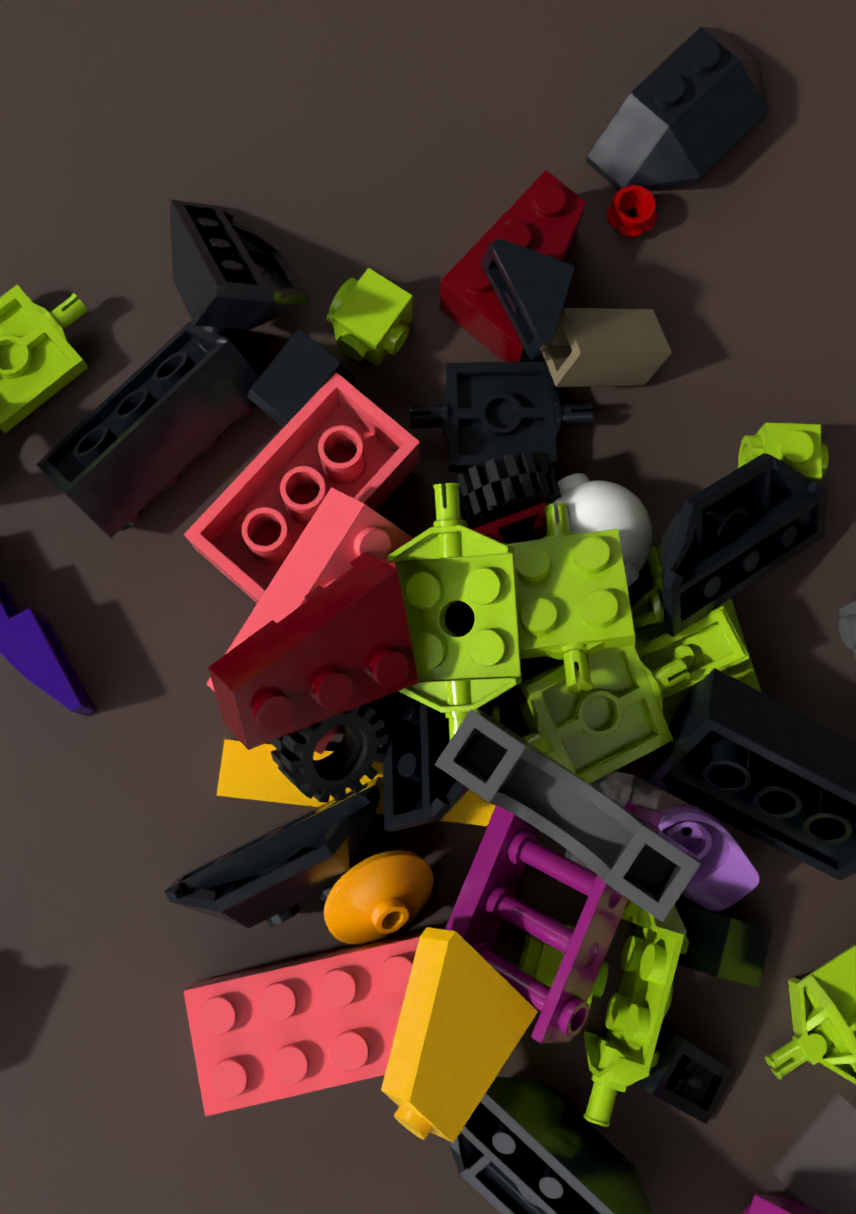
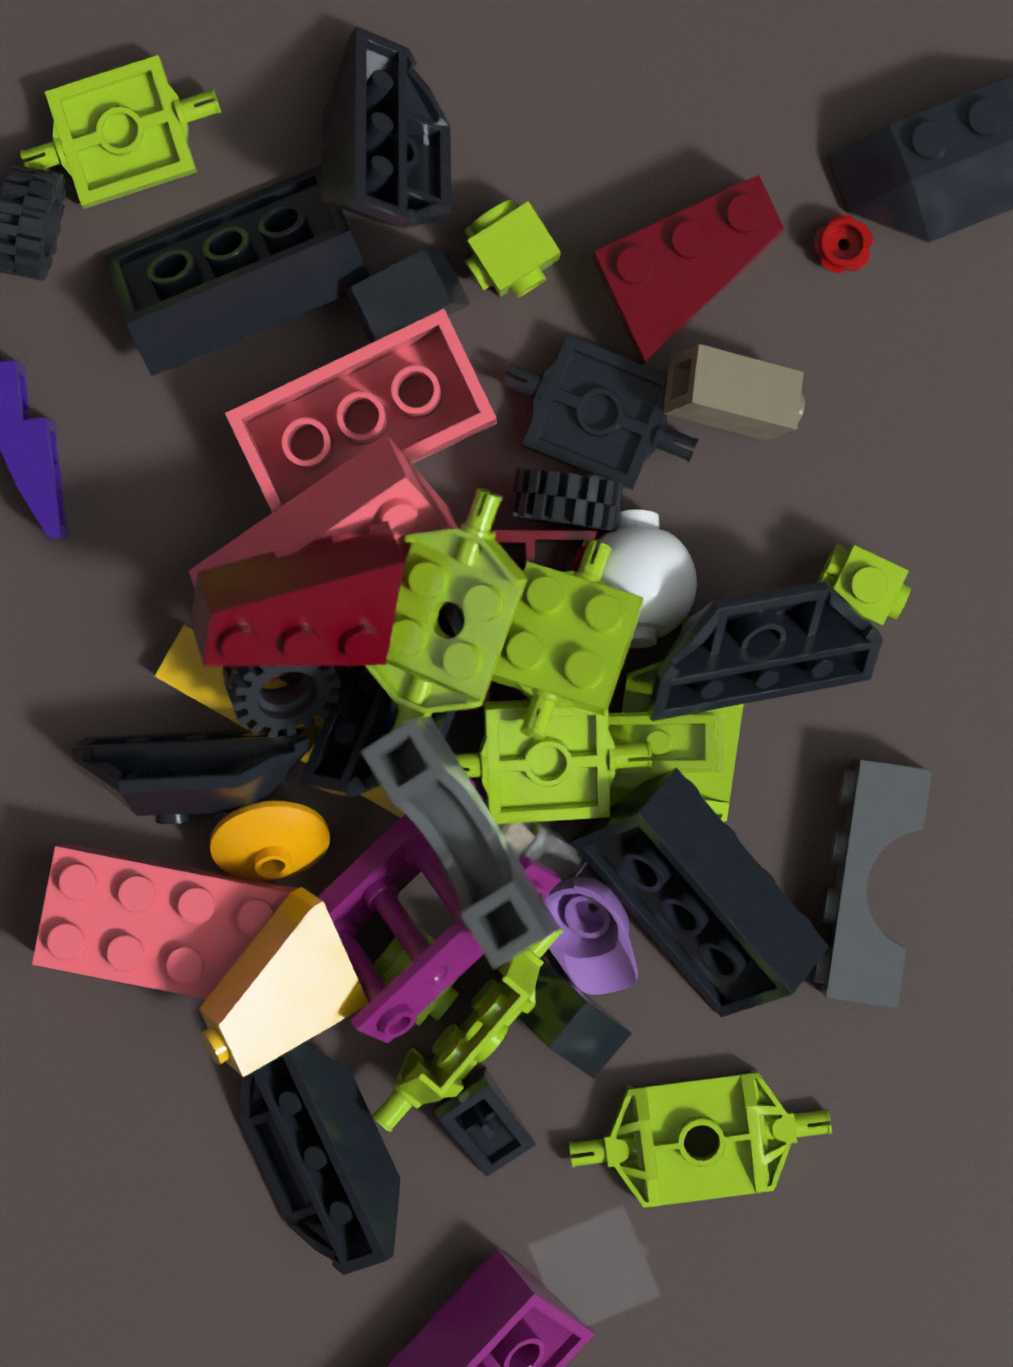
camera: 30 degrees right, 10 degrees up
(529, 289) = (673, 317): black slope -> none

